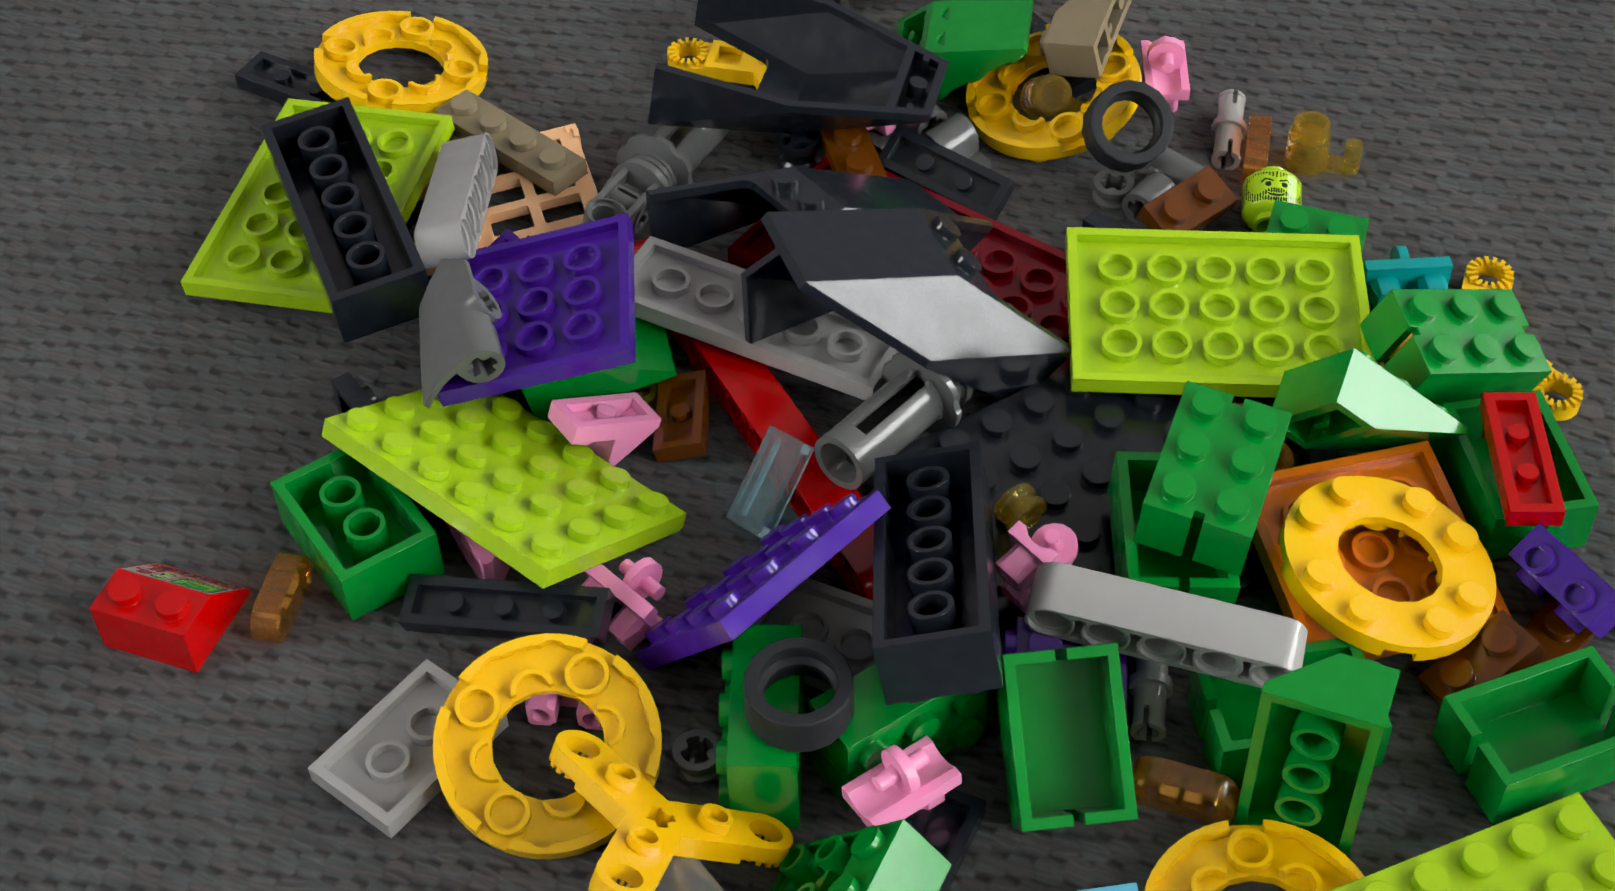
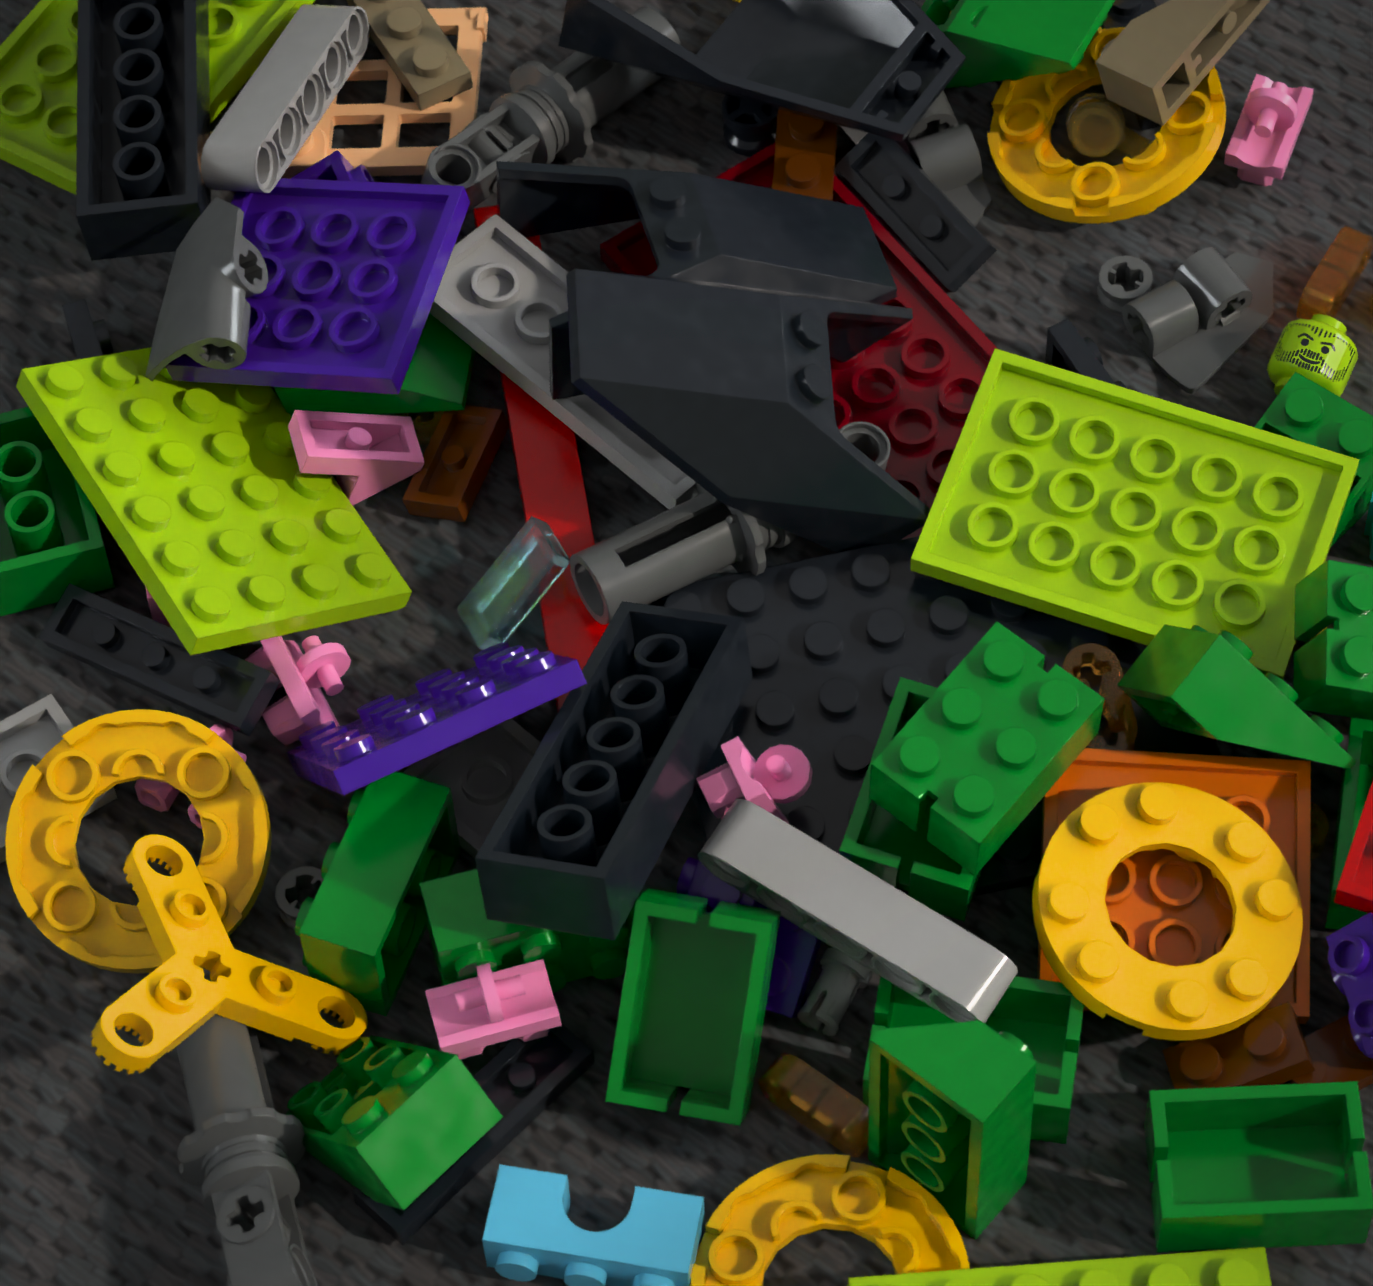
camera: 20 degrees right, 10 degrees up
(799, 731) = (393, 830): black tyre -> none
(1020, 505) = (776, 709): clear yellow bush -> none
(1154, 105) = (1206, 210): black tyre -> none
(1189, 203) = (1195, 343): reddish brown plate -> none
(1228, 130) = (1315, 235): light grey pin -> none

